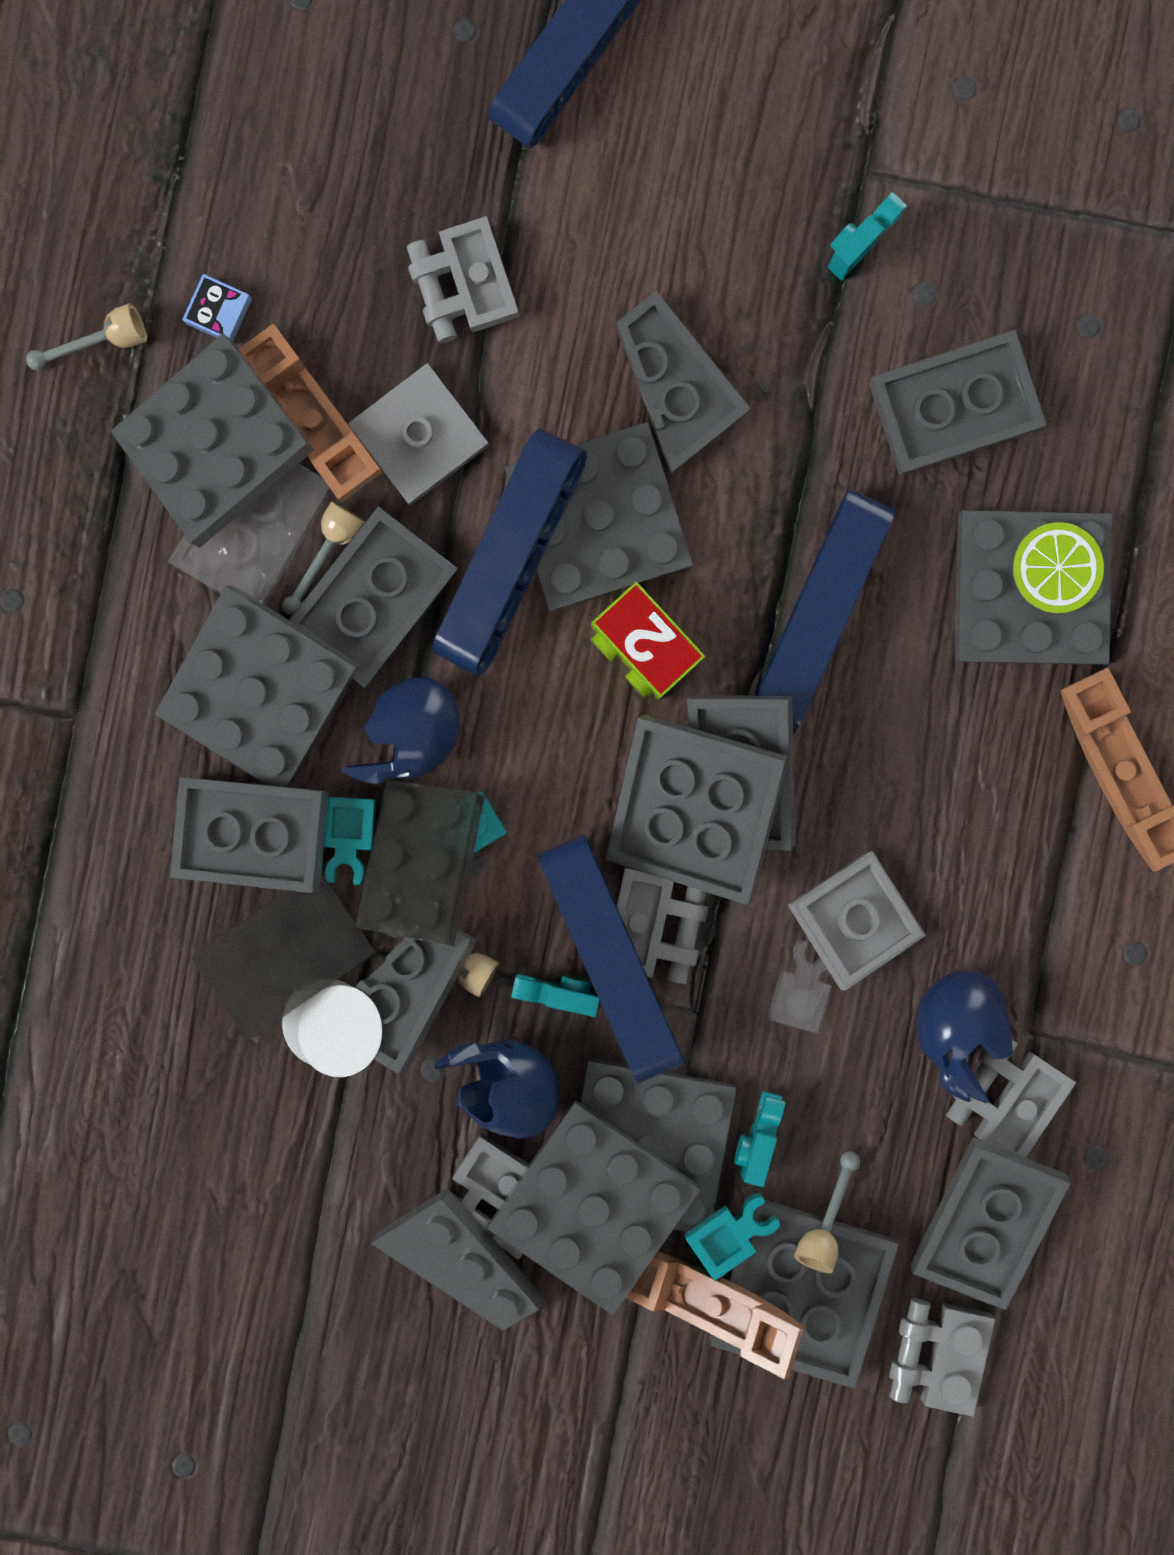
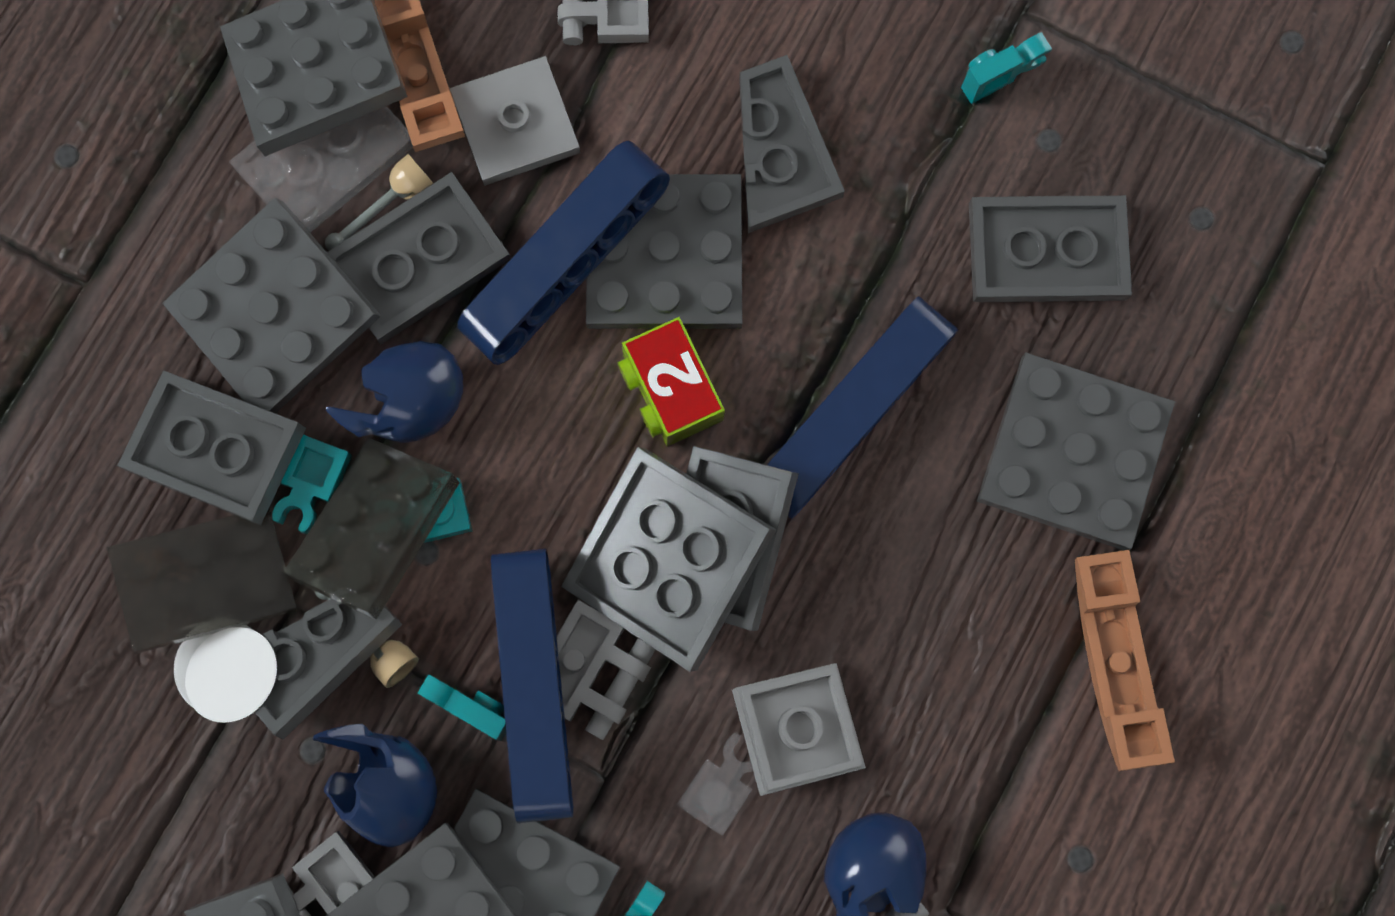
camera: 15 degrees right, 10 degrees down
(1058, 567) = (1105, 435): lime sticker -> none

